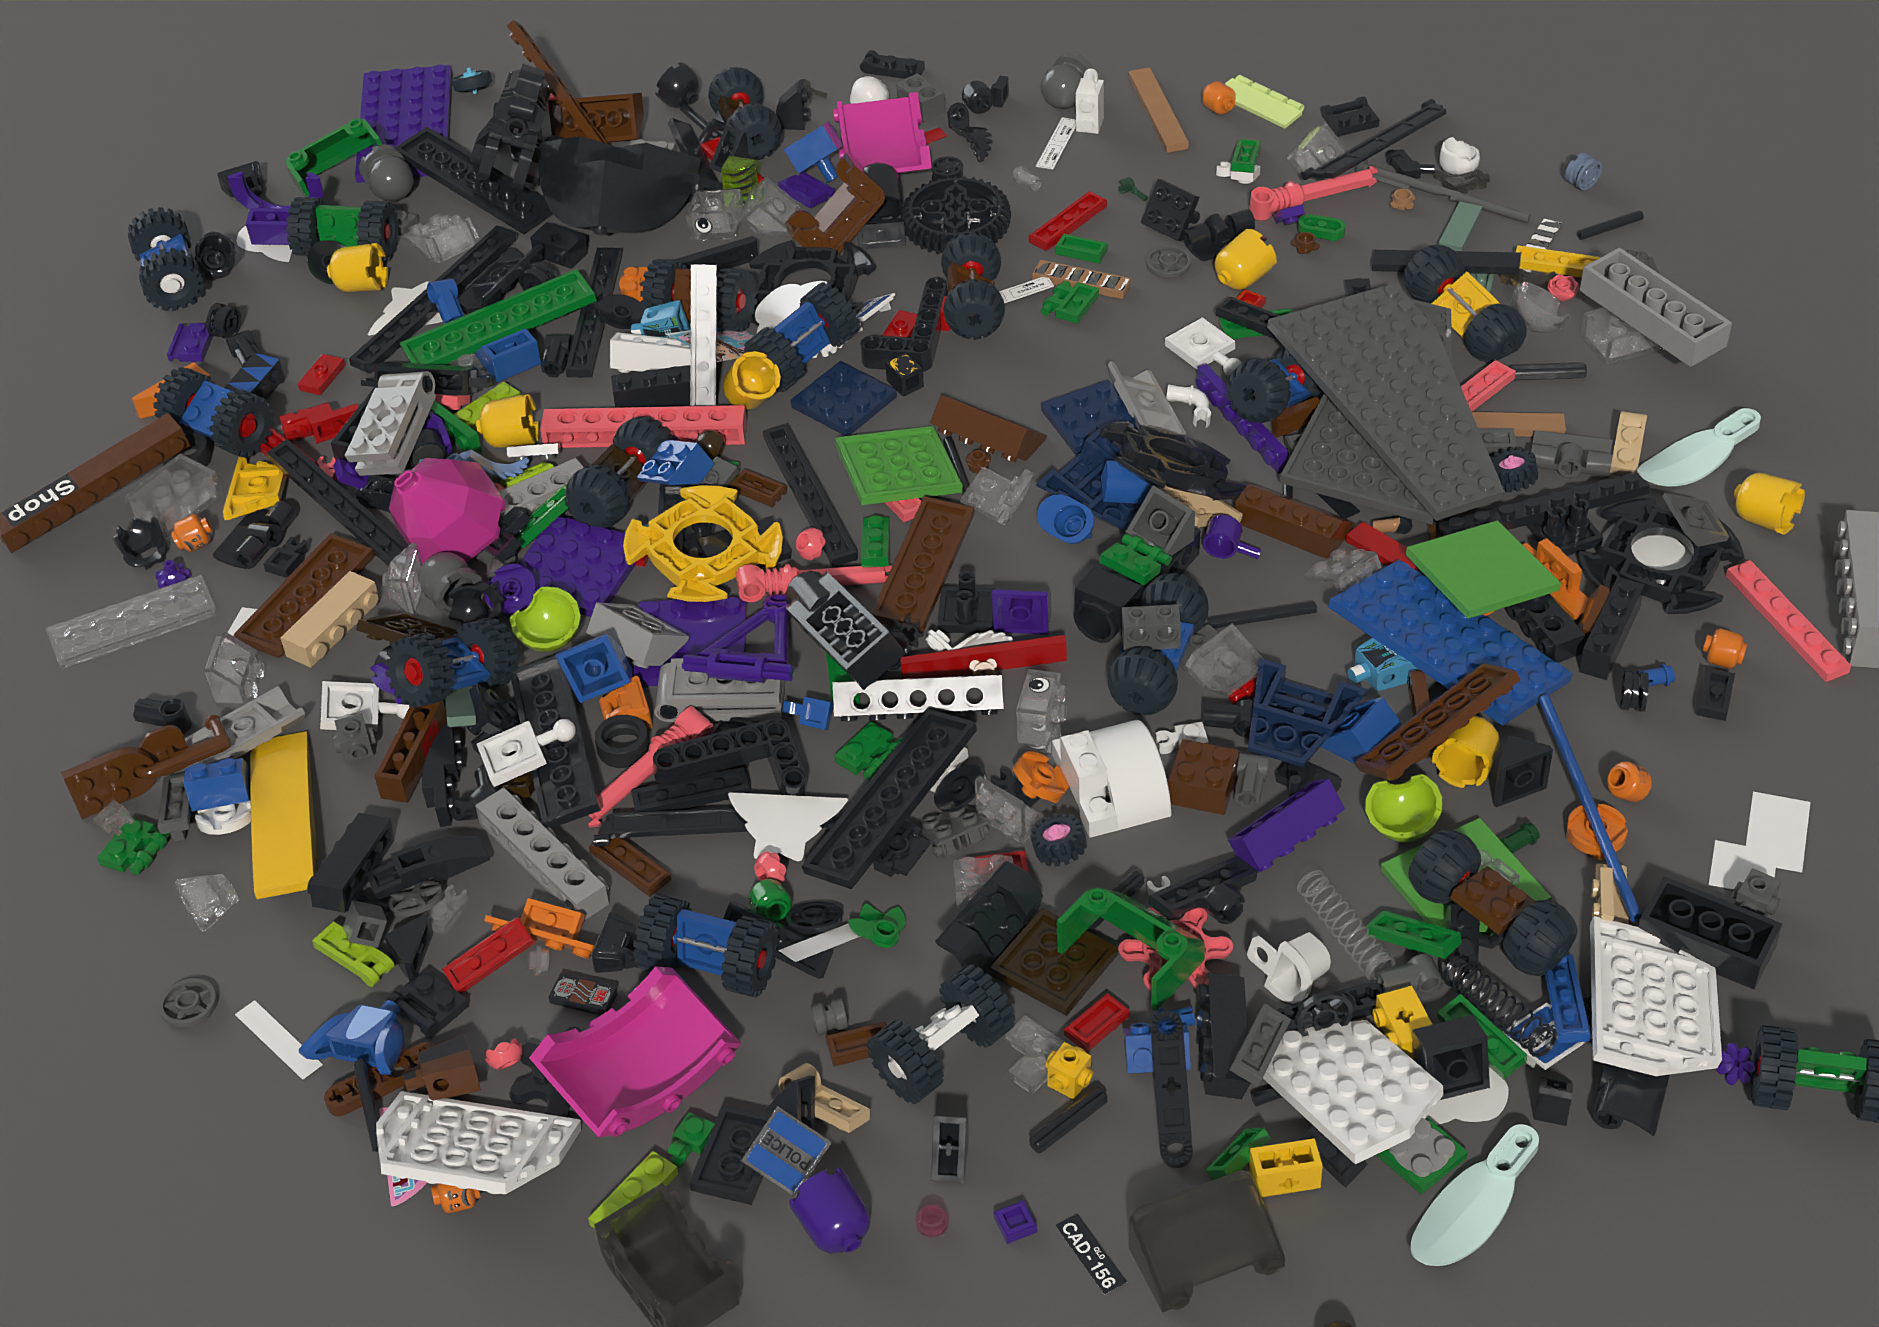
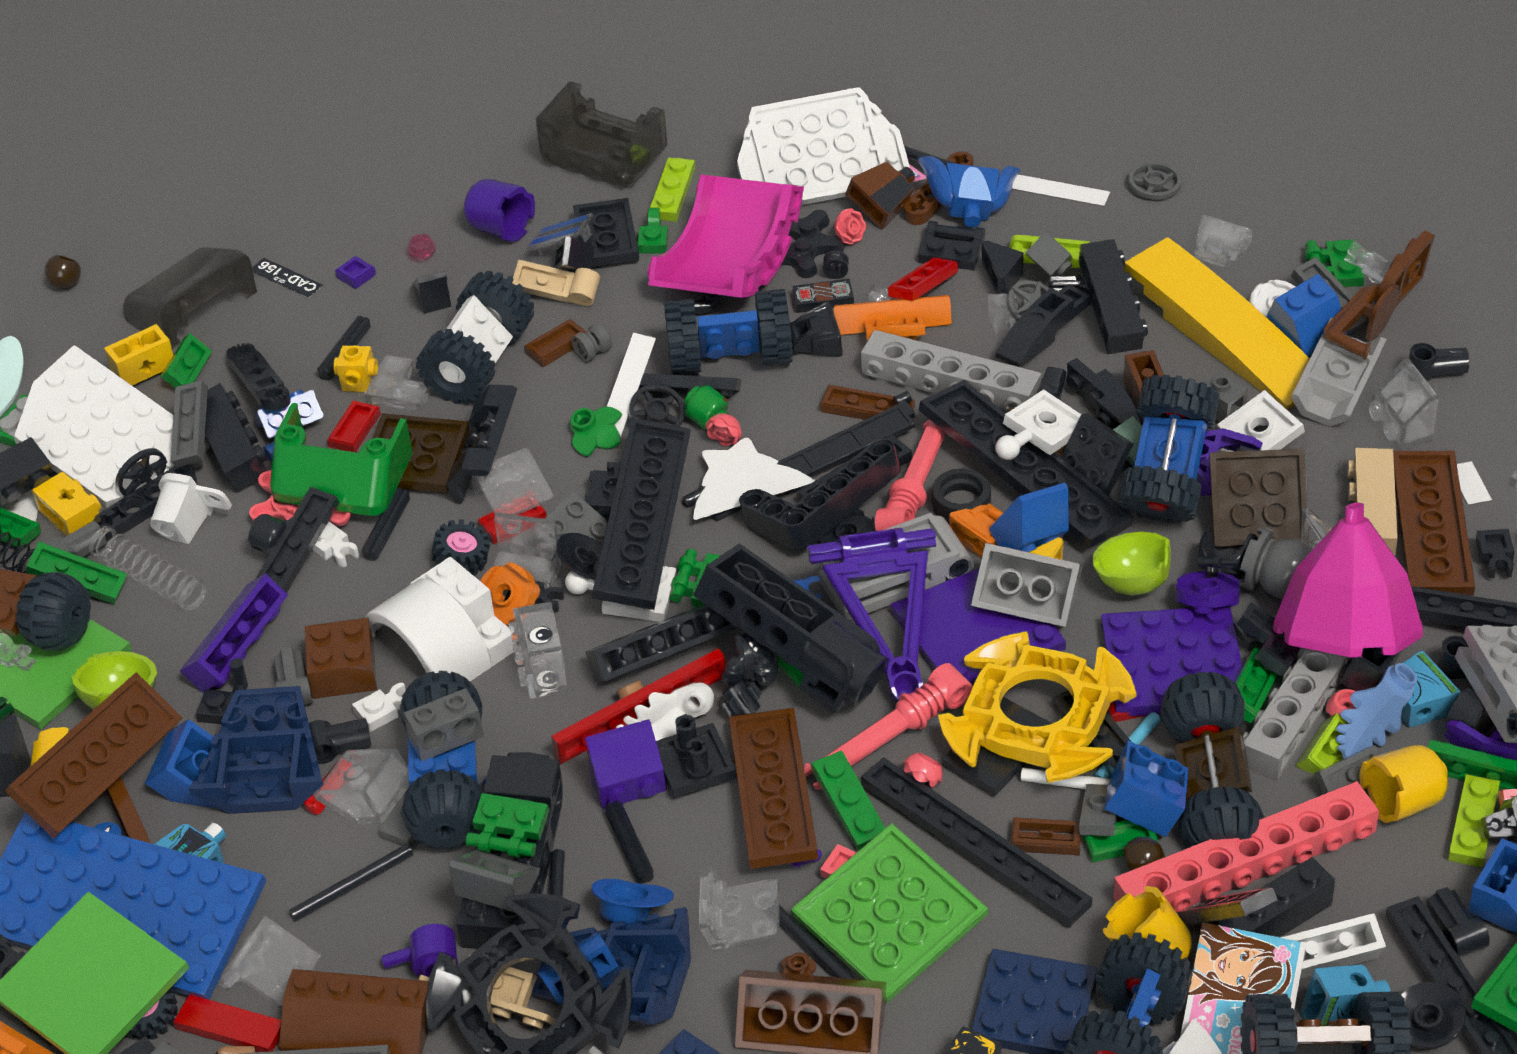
camera: 155 degrees right, 0 degrees up
(549, 1016) = (834, 271): none -> black bush
(1045, 568) = (629, 842): none -> black axle

